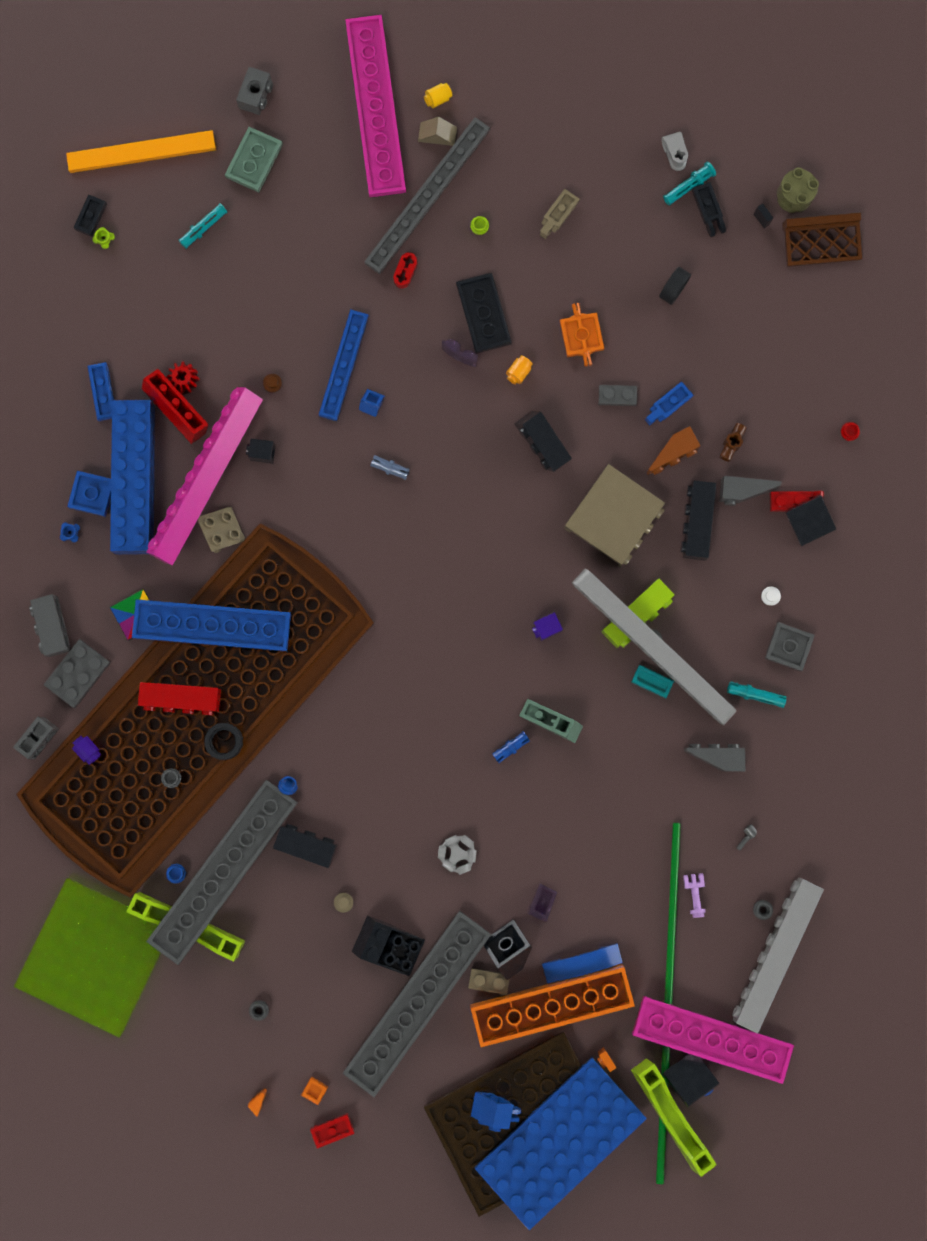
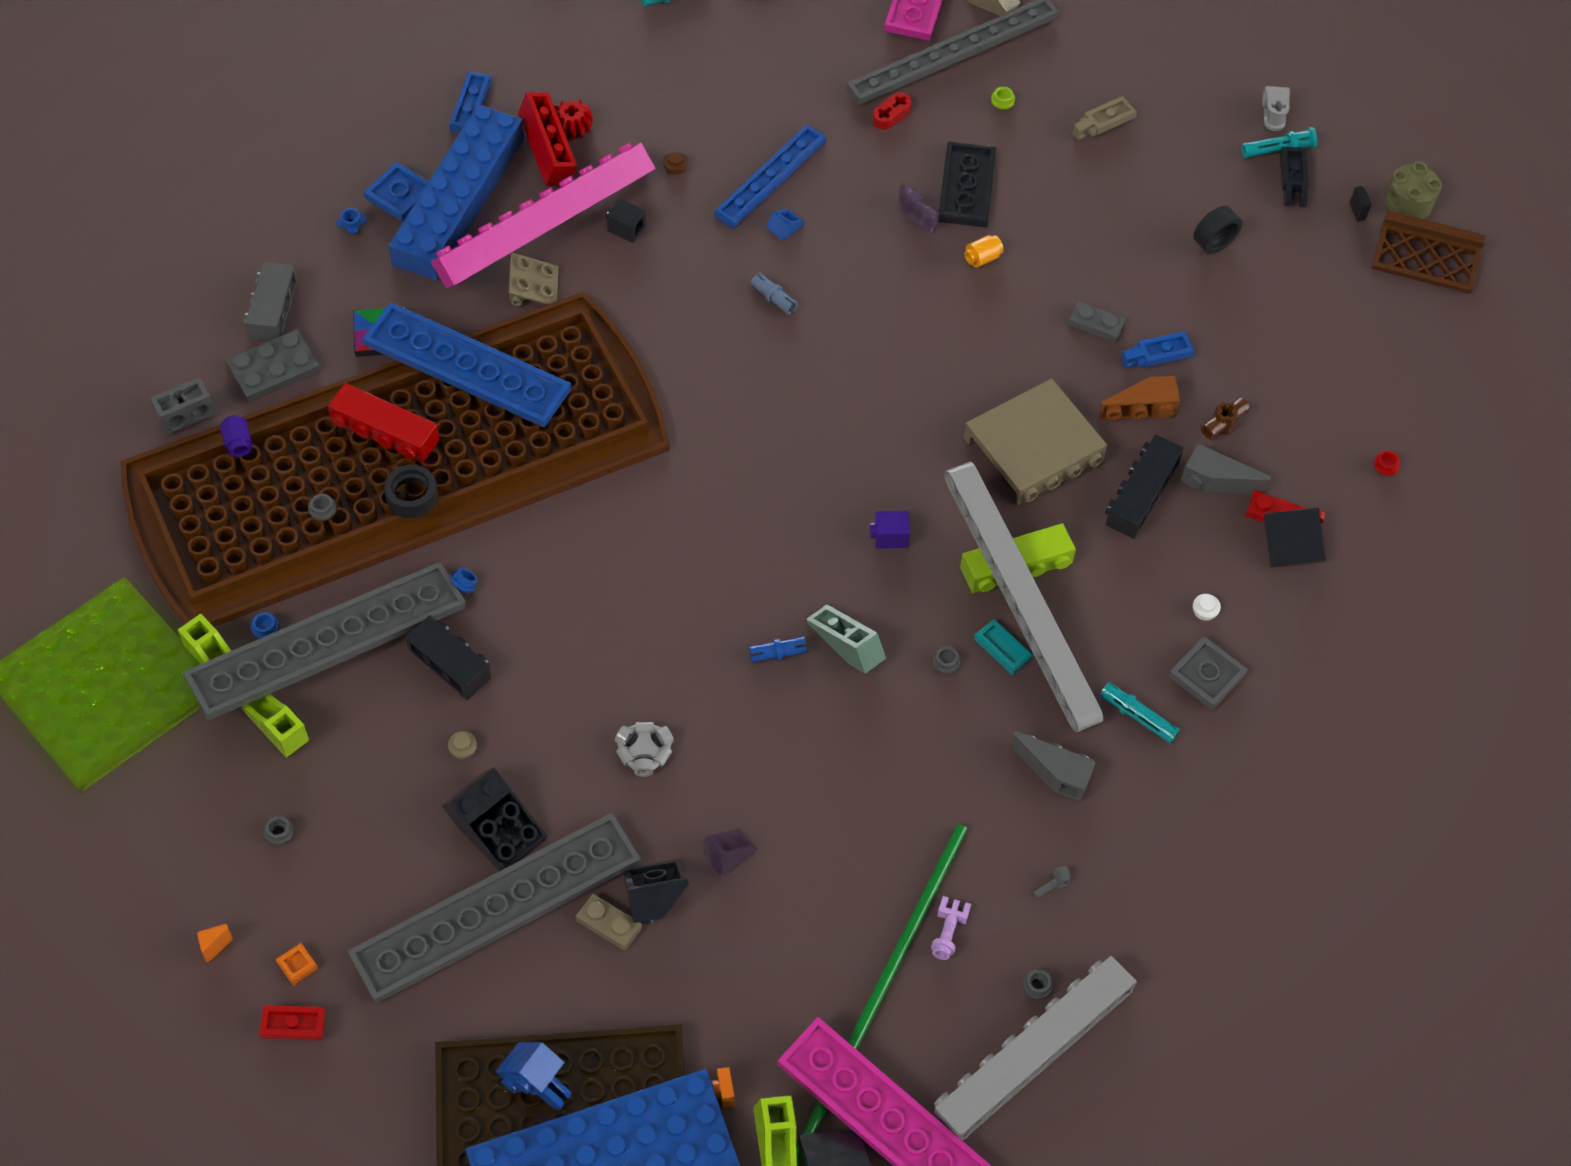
camera: 20 degrees right, 25 degrees down
(543, 440) = (979, 327): black wedge -> none
(551, 1005) = (680, 979): orange brick -> none
(581, 334) = (1079, 243): orange plate -> none
(582, 964) = (751, 948): blue slope -> none
(620, 708) = (946, 660): none -> dark grey plate

